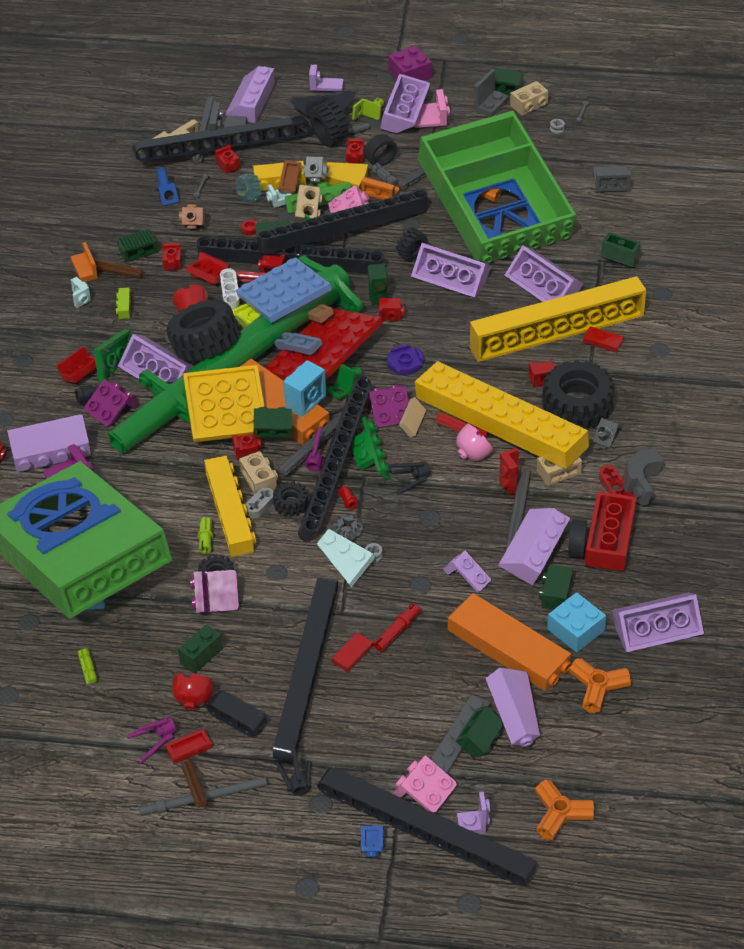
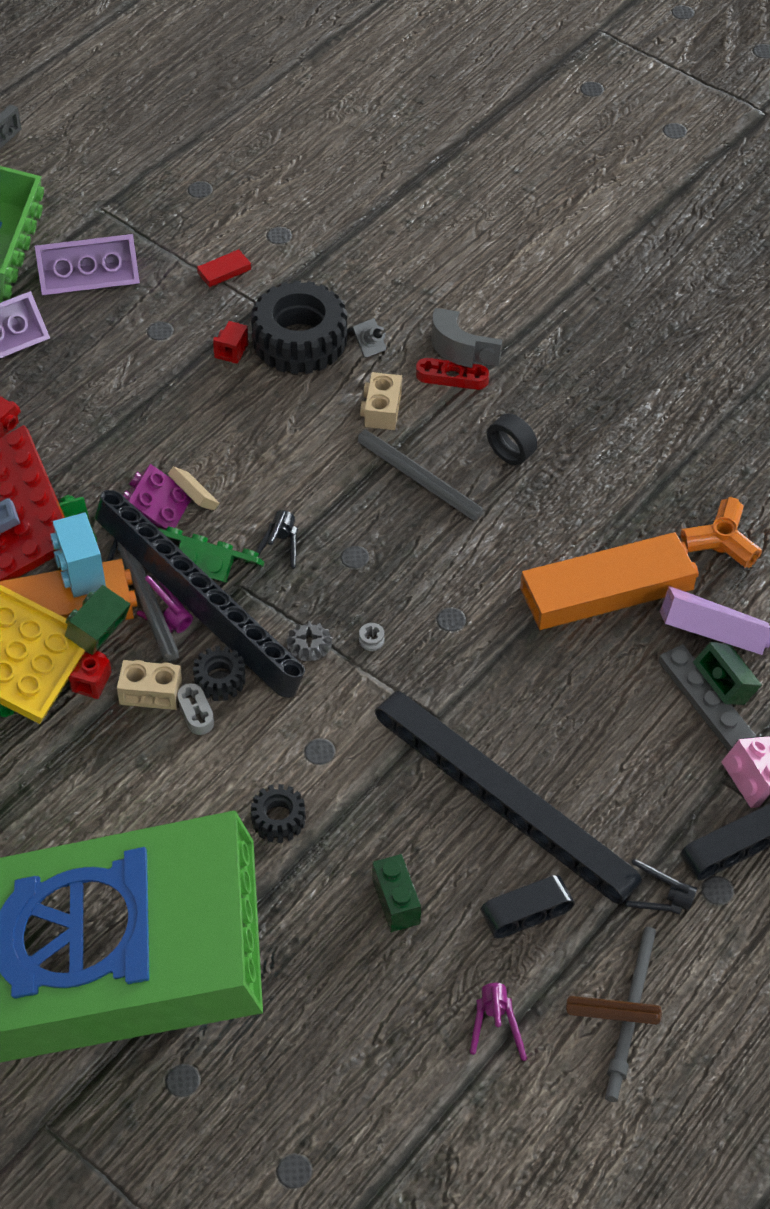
camera: 60 degrees left, 5 degrees up
(87, 666) = (321, 1042): lime axle -> none
(188, 746) = (538, 989): red tile -> none
(192, 690) = (464, 937): red cylinder -> none
(205, 535) = (202, 793): lime axle -> none
(215, 591) = (318, 826): bracket -> none
(229, 507) = (177, 742): yellow brick -> none
(345, 555) = (357, 664): light aqua wing -> none
(350, 501) = (268, 616): red pin -> none
(352, 652) = (510, 737): red tile -> none
(402, 622) = (503, 663): red pin -> none
(405, 360) = (89, 449): dark purple tile -> none
(455, 424) = (245, 454): red axle -> none
(469, 570) = (467, 557): lavender bracket -> none
(472, 445) = (289, 454): bright pink cylinder -> none
(502, 414) = (272, 404): yellow brick -> none
(509, 470) = (364, 443): red bracket -> none
(534, 543) = (487, 480): lavender slope -> none
(556, 586) = (561, 497): dark green brick -> none
(557, 318) = (167, 285): yellow brick -> none
(576, 622) = (626, 506): medium azure brick -> none
(610, 531) = (509, 390): red brick -> none
(620, 249) = (113, 179): dark green brick -> none
(658, 621) = (672, 439): lavender slope -> none

